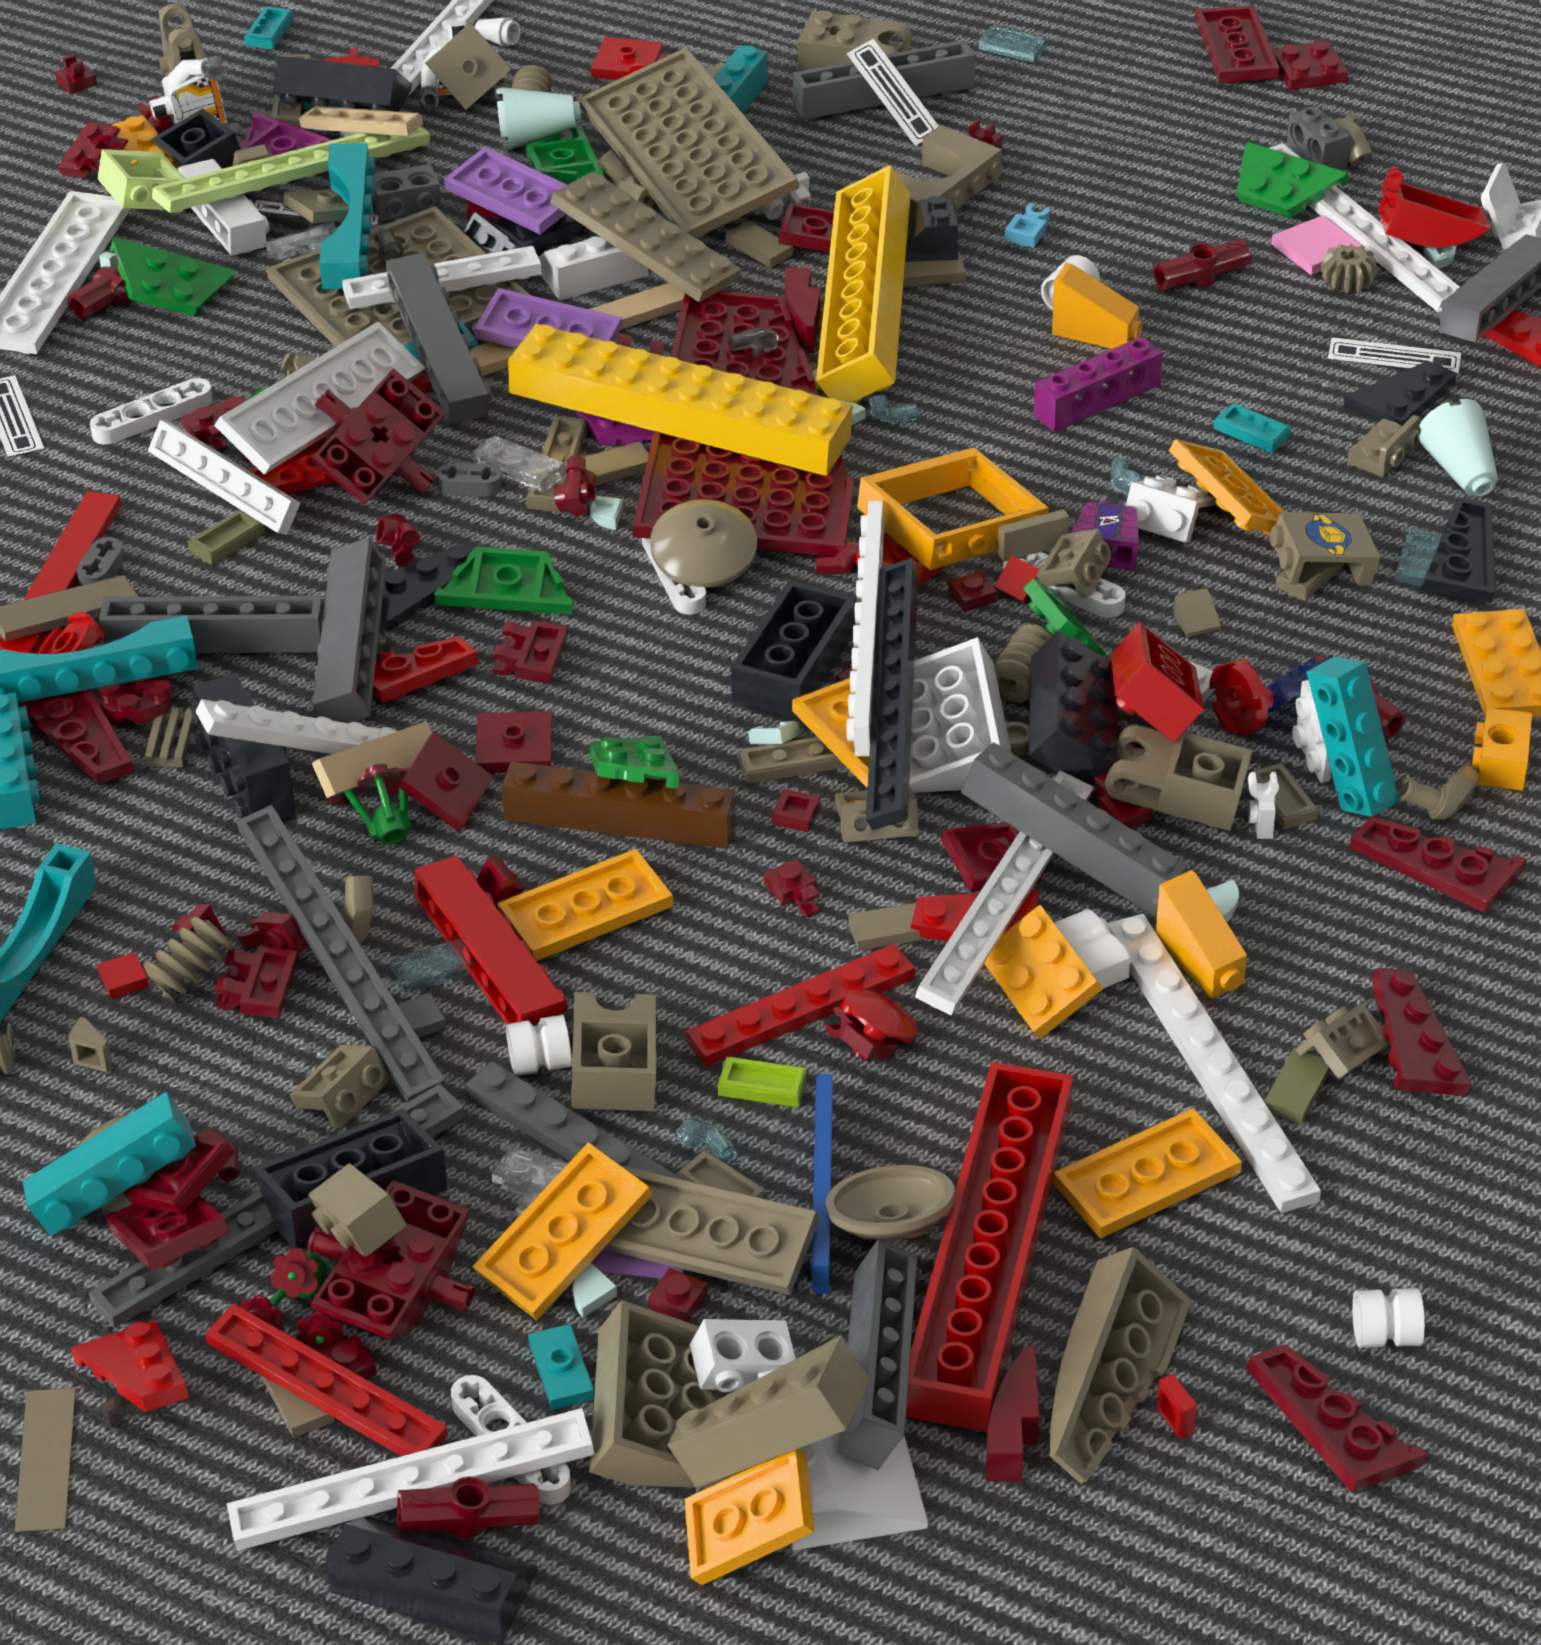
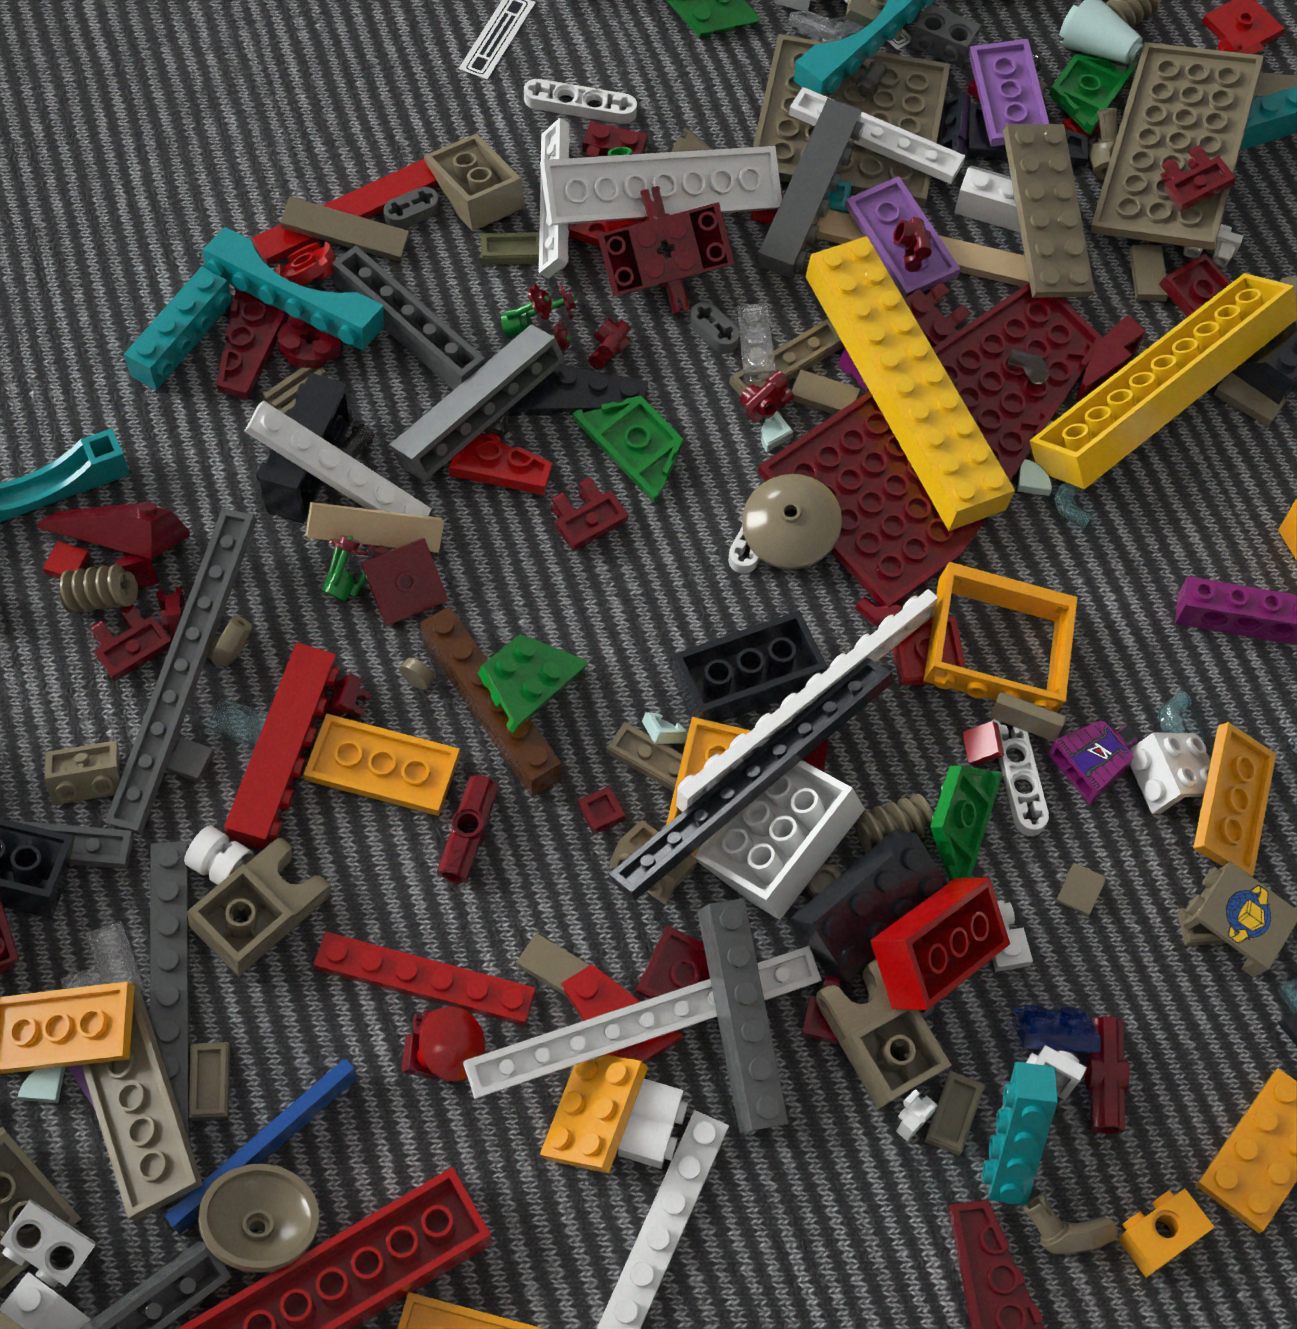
camera: 40 degrees right, 20 degrees up
(142, 506) = (476, 181): none -> dark tan slope
(159, 898) = (129, 528): none -> dark red wedge
(304, 570) = (519, 319): none -> plant
(514, 738) = (495, 582): dark red plate -> none
(534, 832) = (416, 673): none -> dark tan tile
(569, 314) = (915, 240): none -> dark red plate
(678, 1295) = (85, 1143): dark red plate -> none
(707, 1133) = (246, 1030): clear light blue arm -> none
(711, 891) = (463, 847): none -> dark red piece
(734, 147) = (1200, 183): none -> dark red plate
(762, 1081) = (330, 1019): lime tile -> none
(794, 884) = (531, 871): dark red plate -> none
(972, 591) = (944, 722): dark red plate -> none
(1076, 559) = (1032, 768): dark tan bracket -> none
(1199, 935) = (731, 1193): light orange slope -> none
(1225, 898) = (799, 1166): light aqua tile -> none
(1241, 697) = (1007, 1004): red plate -> none

